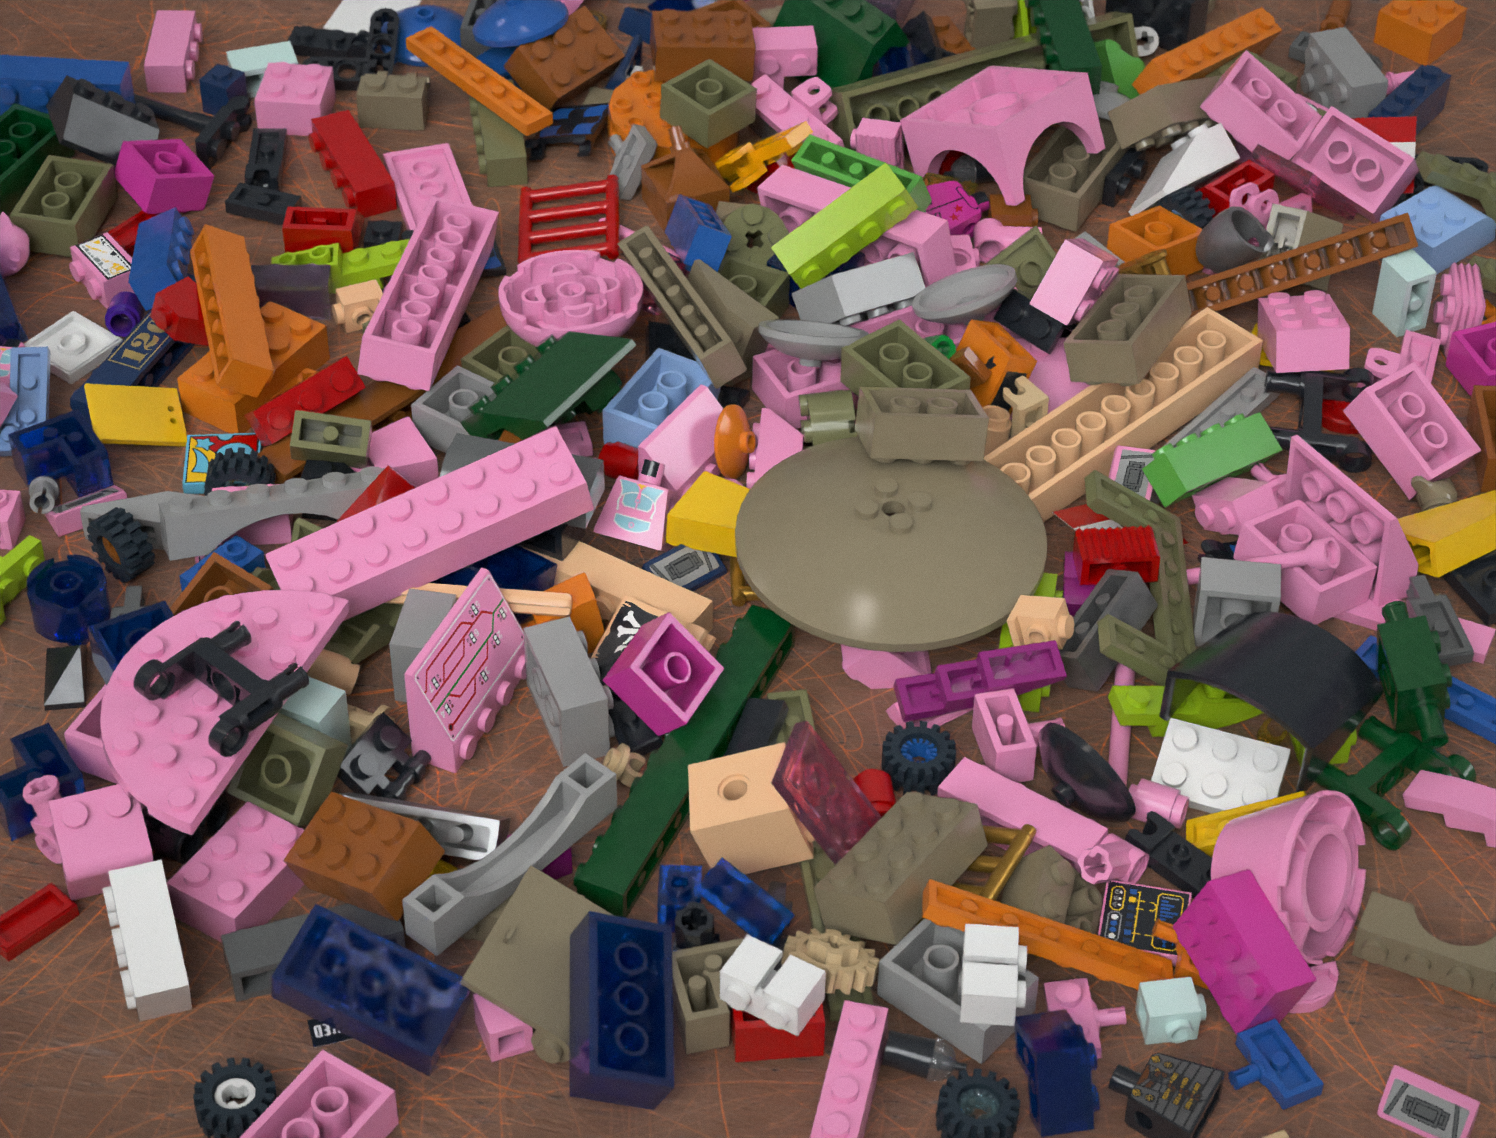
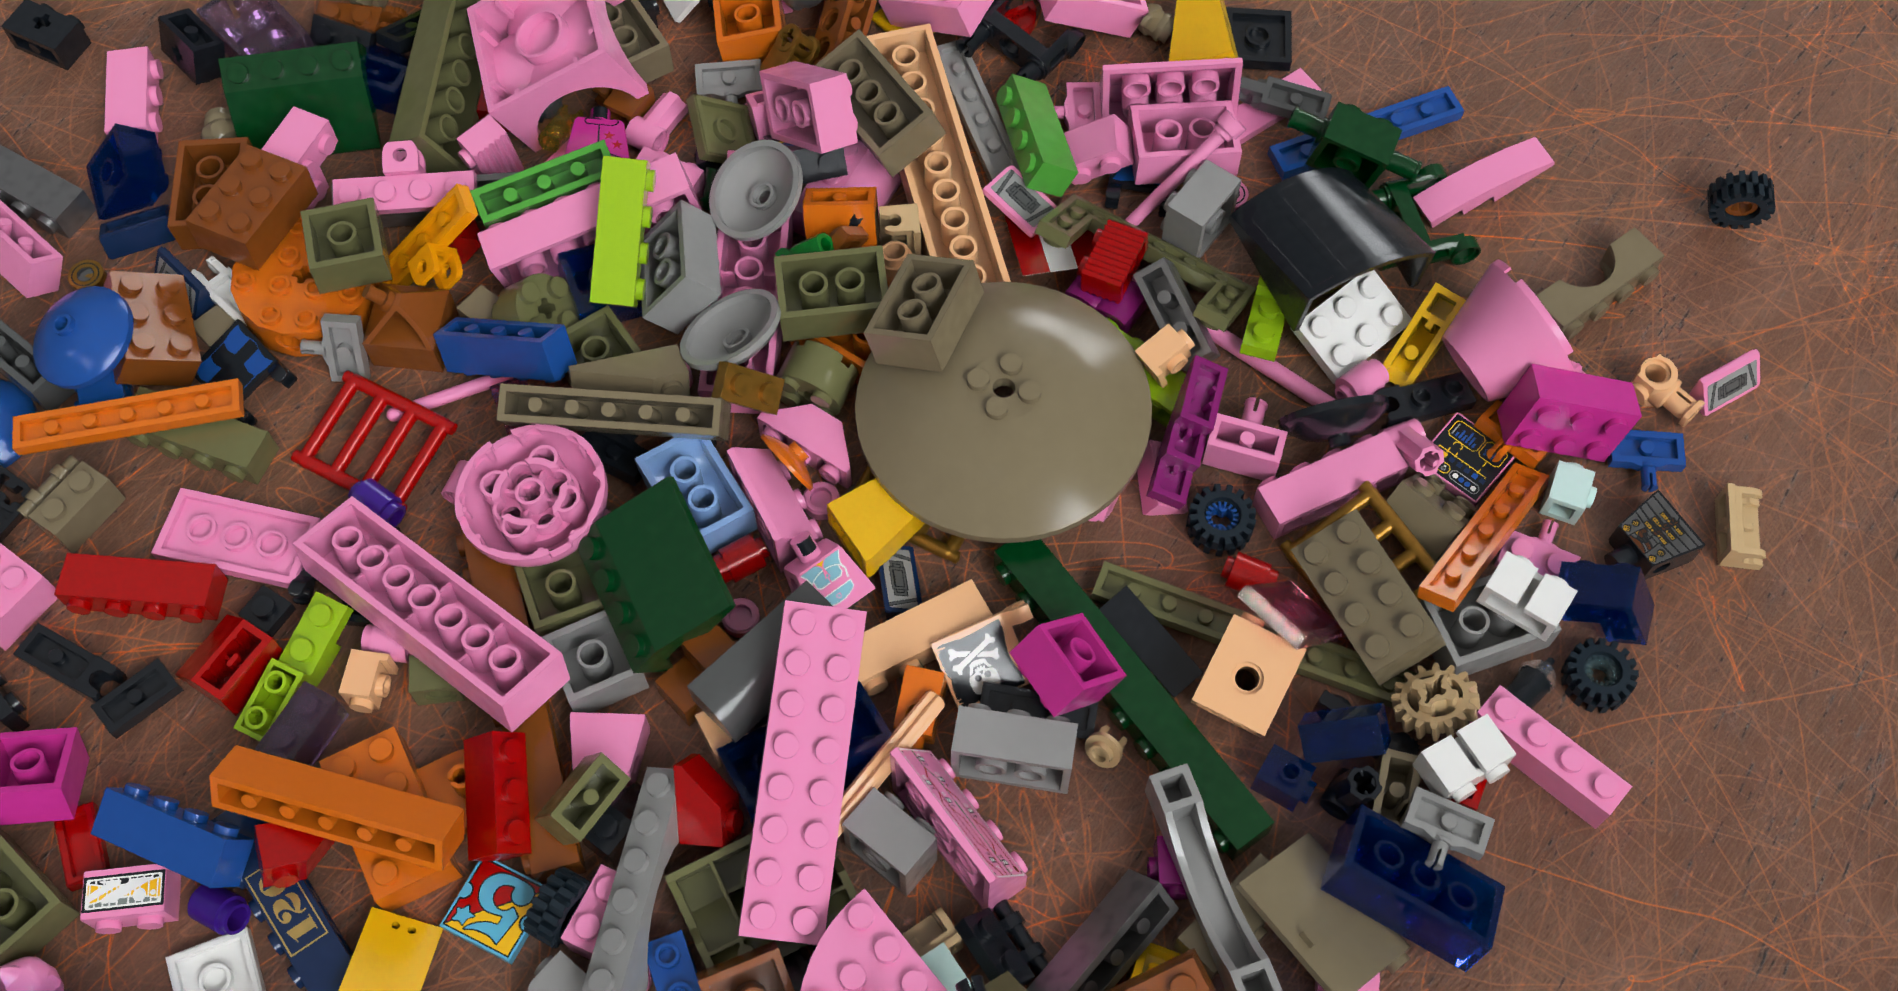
camera: 60 degrees left, 20 degrees up
(511, 241) = (379, 500): none -> dark purple brick
(692, 998) = (1446, 826): none -> light grey plate
(767, 368) = (748, 388): none -> pearl gold plate
(1368, 1042) = (1665, 389): none -> light nougat connector

